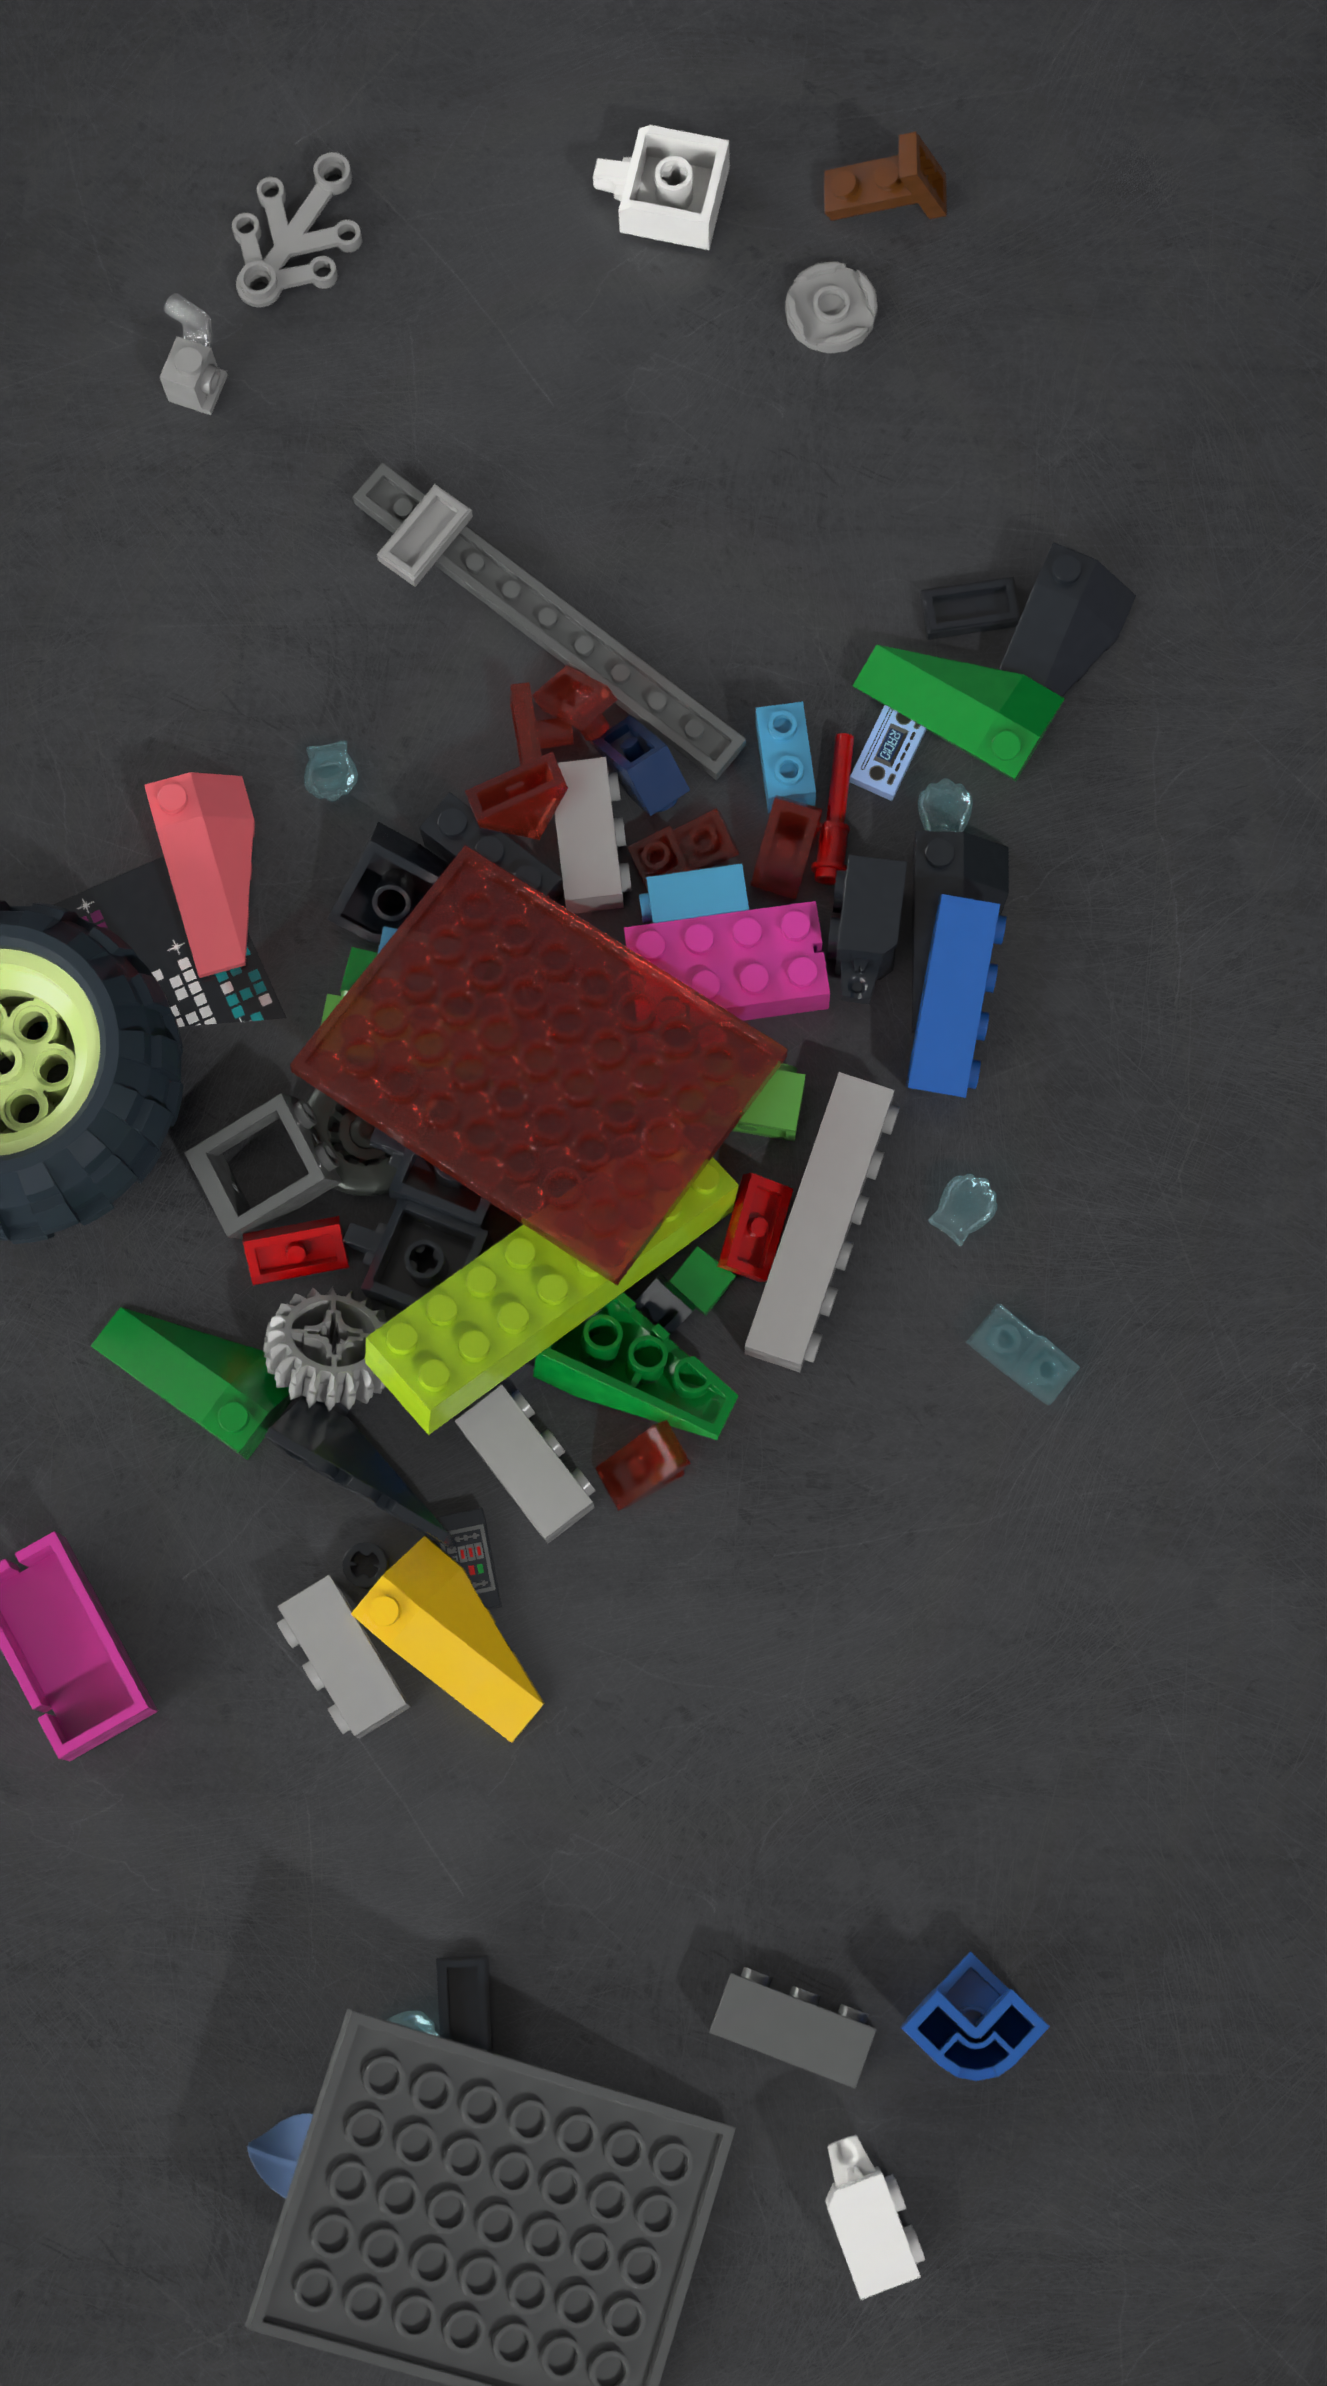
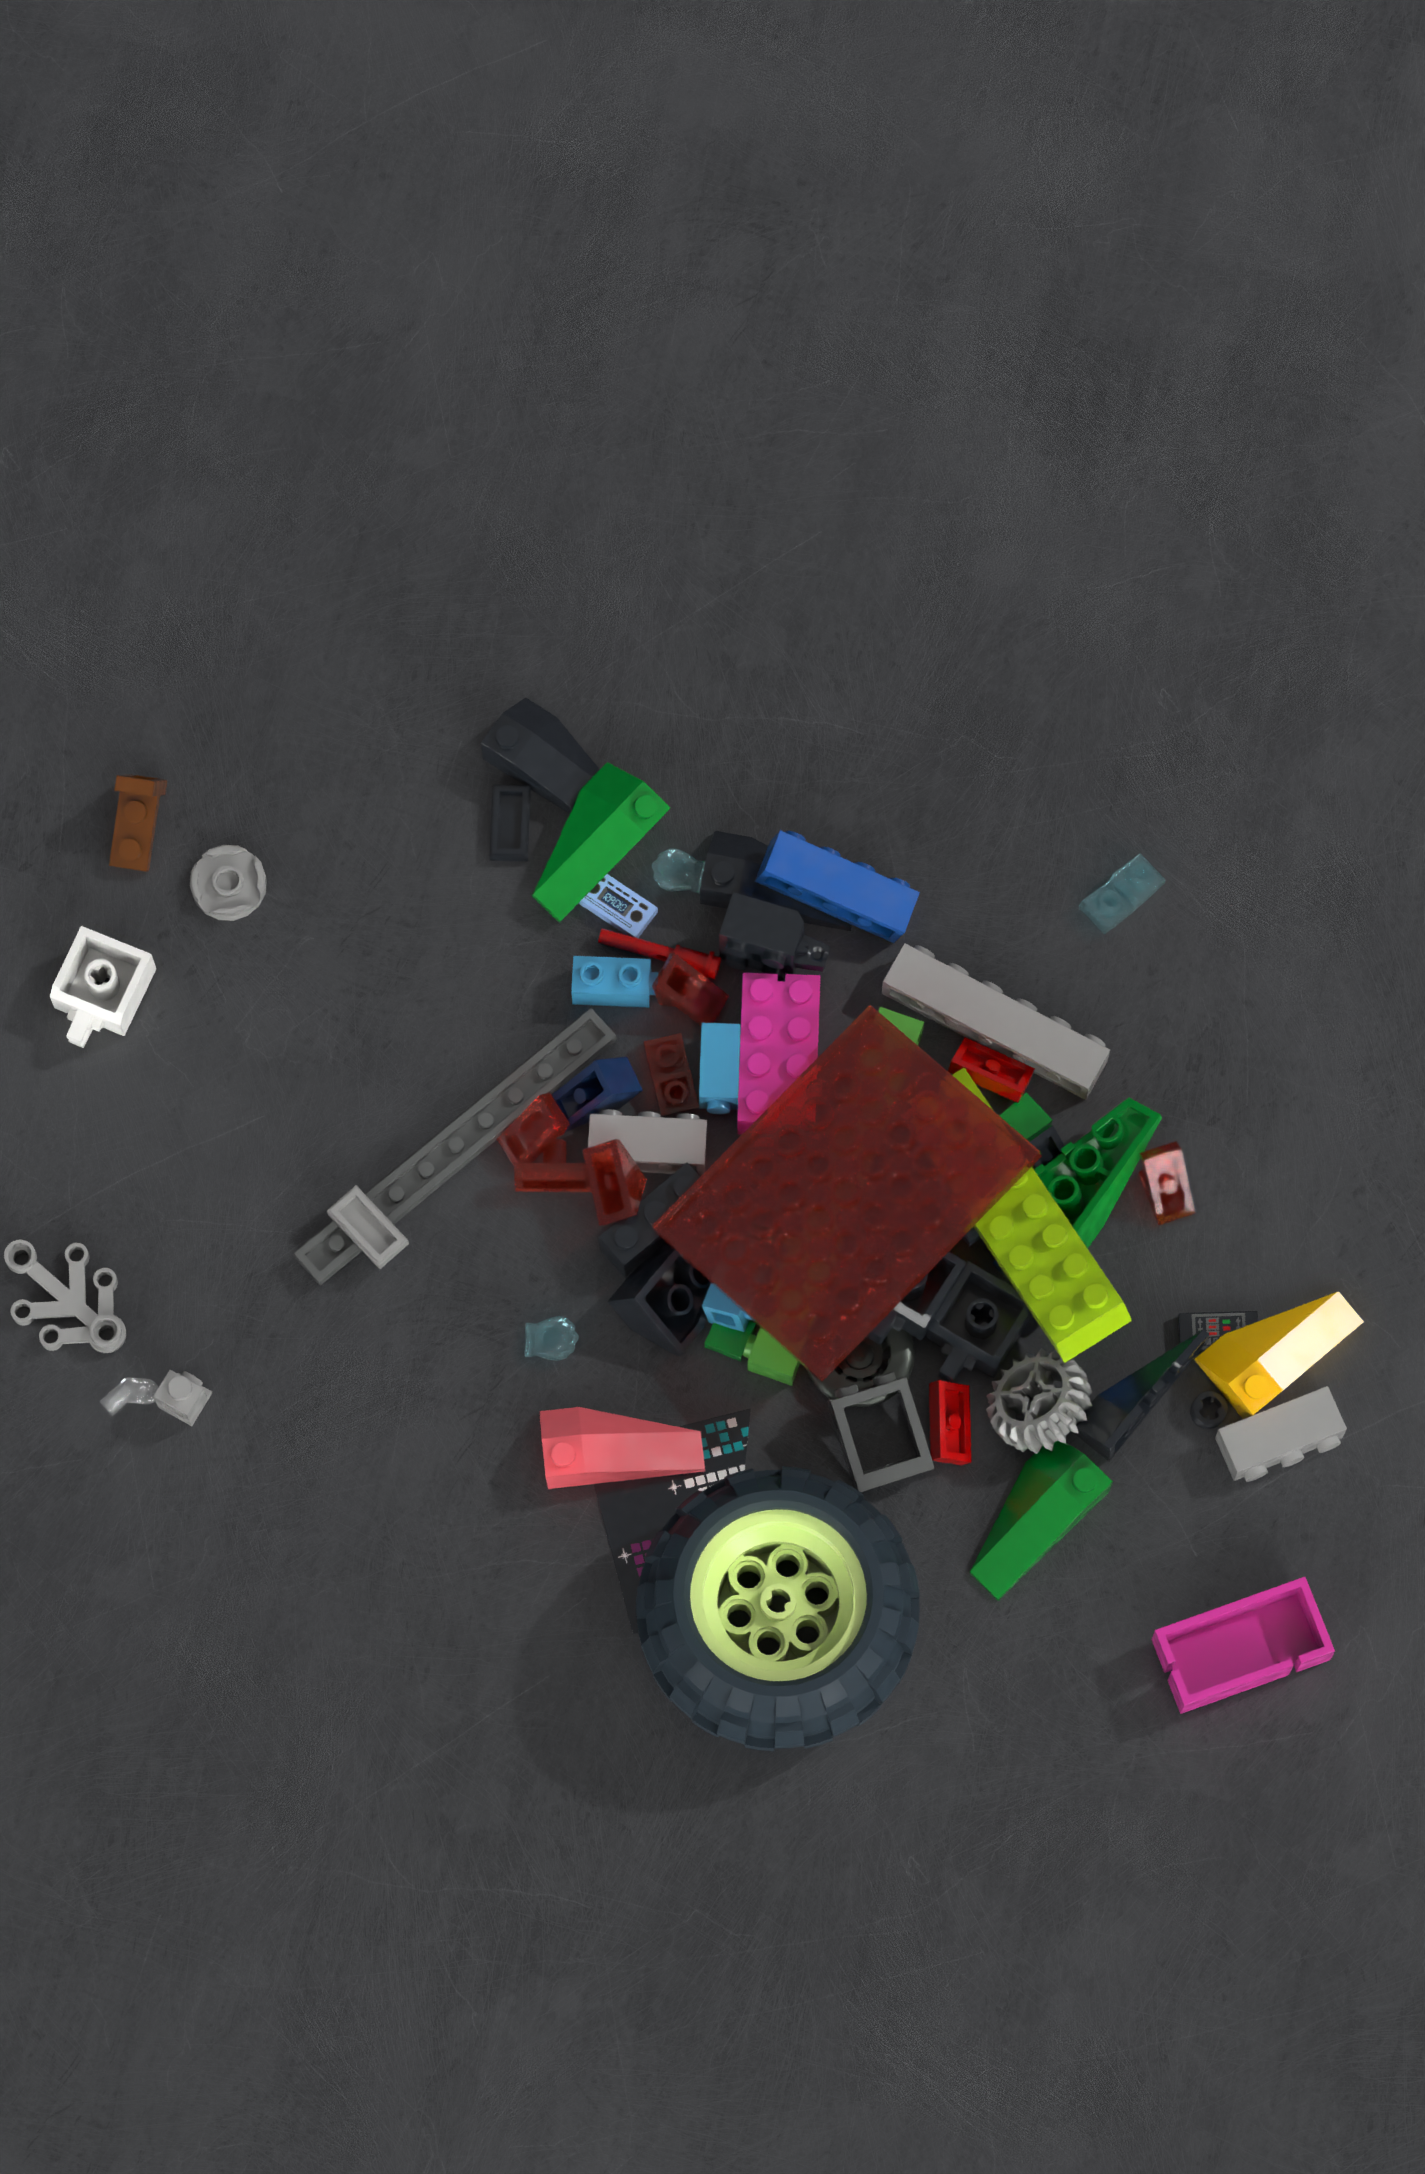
camera: 85 degrees left, 5 degrees down
(527, 1462) = (1159, 1267): light grey brick -> none
(964, 1207) = (1000, 914): clear light blue animal -> none

